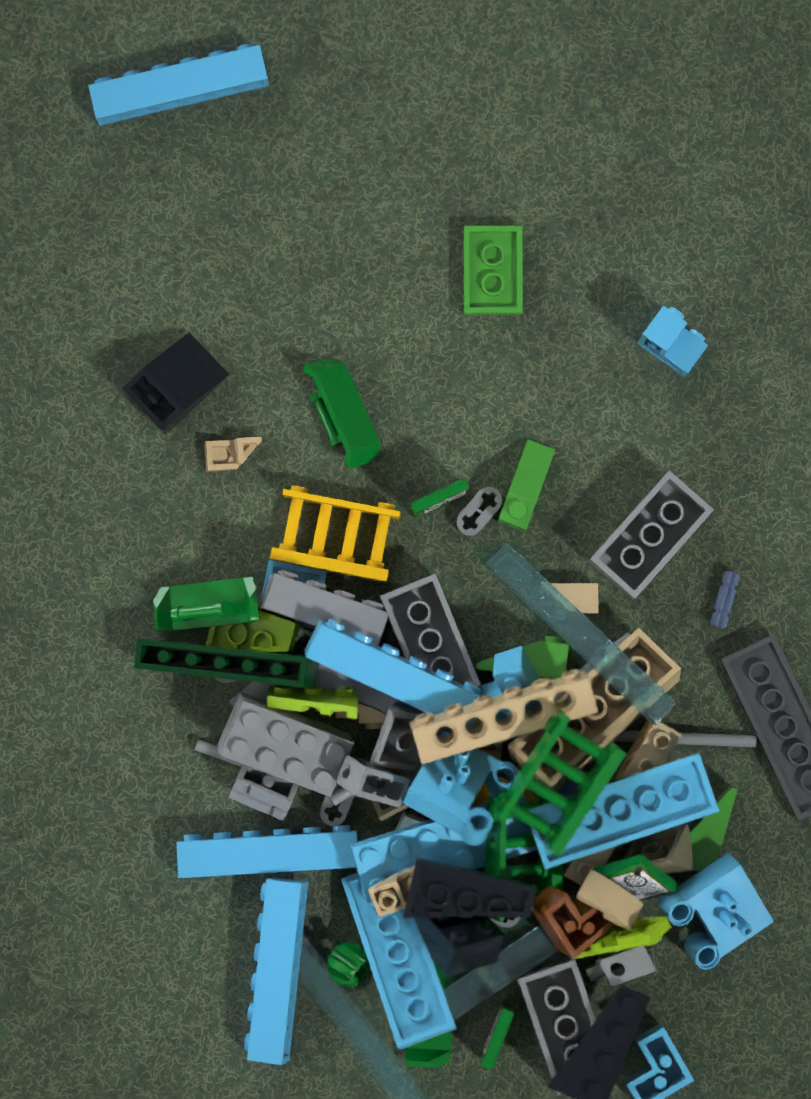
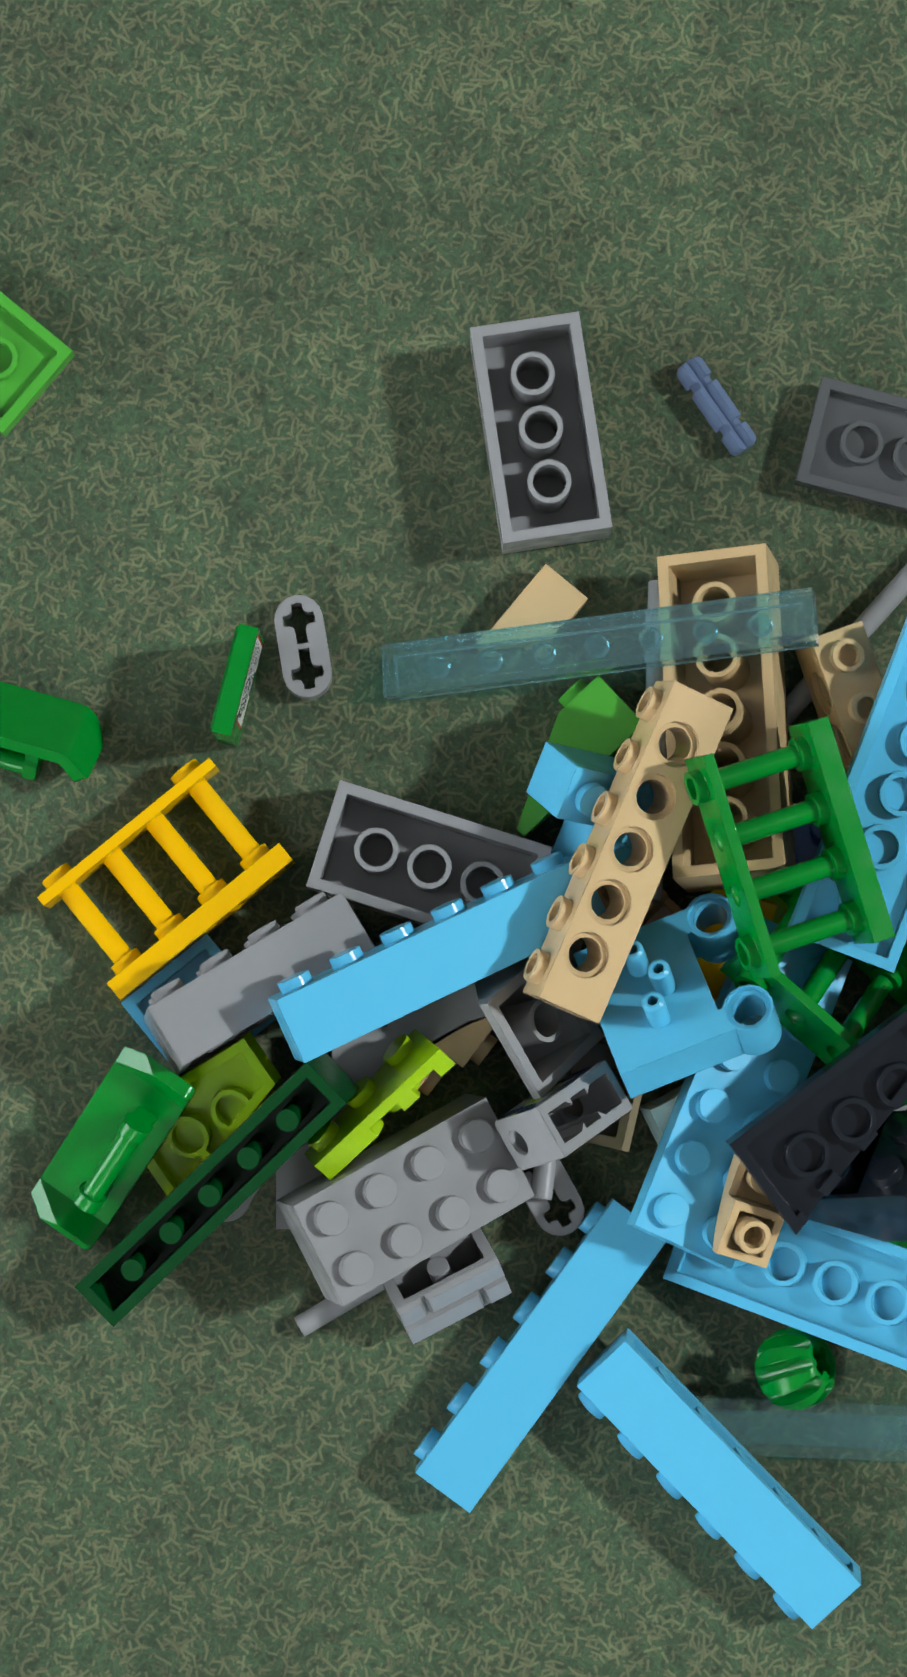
camera: 50 degrees left, 0 degrees up
(526, 485) = (323, 551): bright green slope -> none
(671, 342) = (291, 176): medium azure brick -> none

